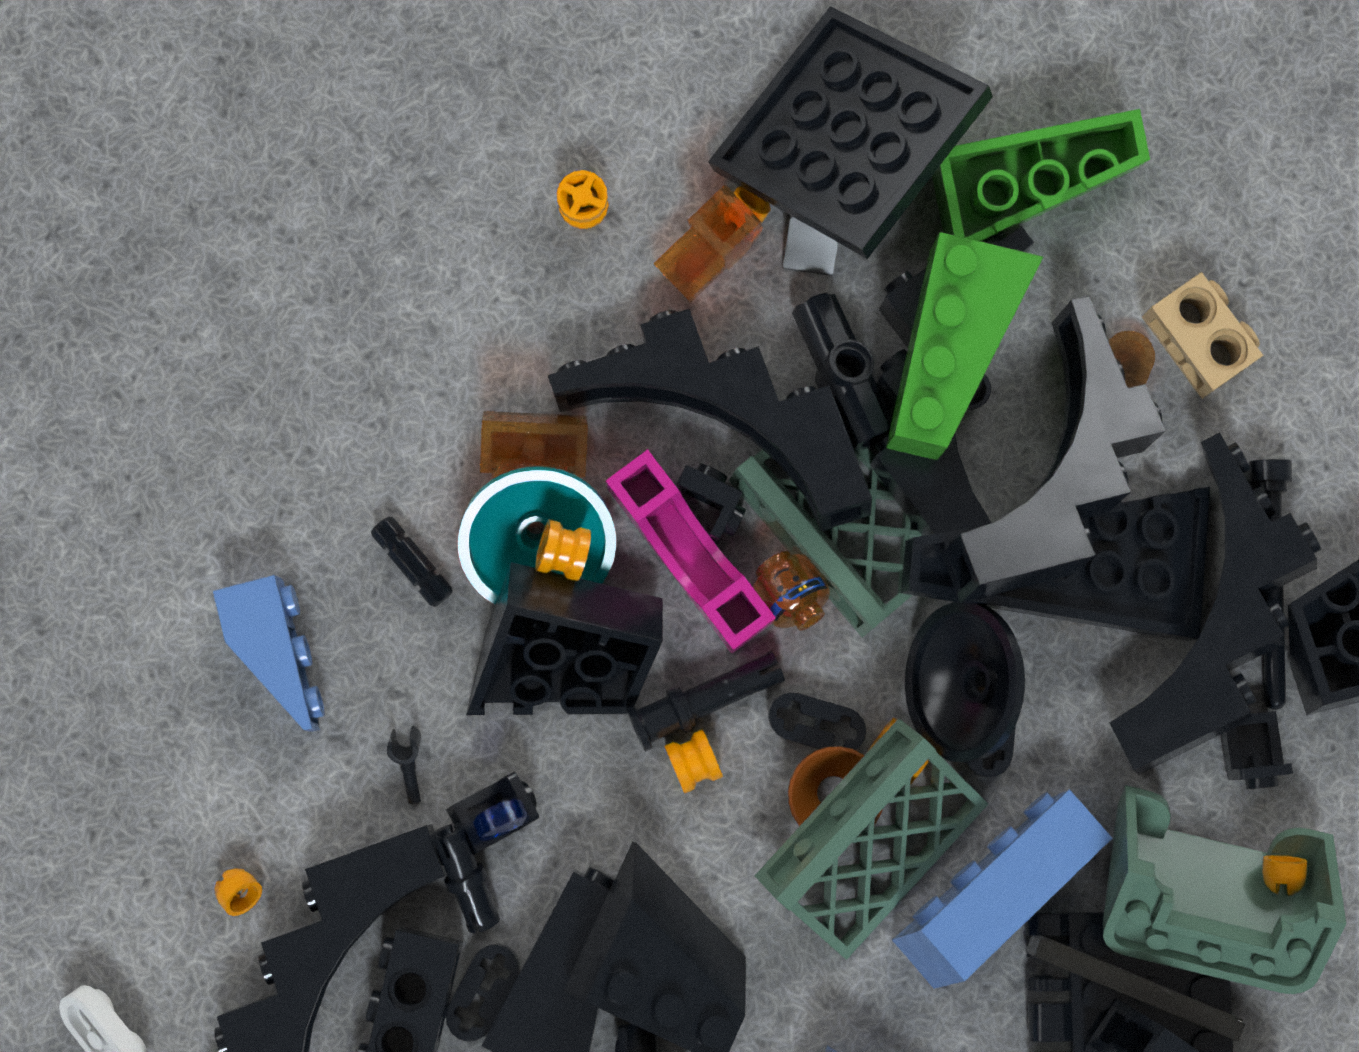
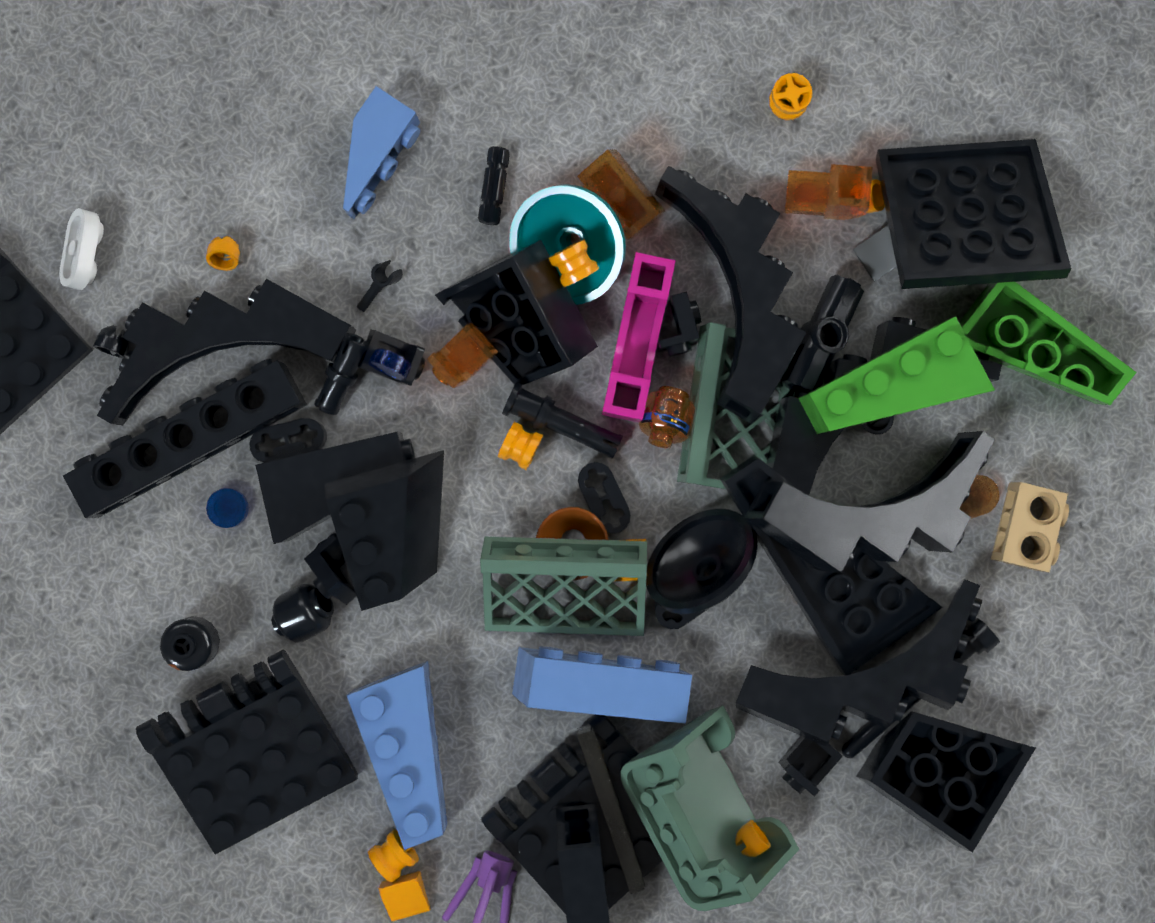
camera: 50 degrees right, 5 degrees up
(554, 742) = (462, 357): none -> clear orange bracket

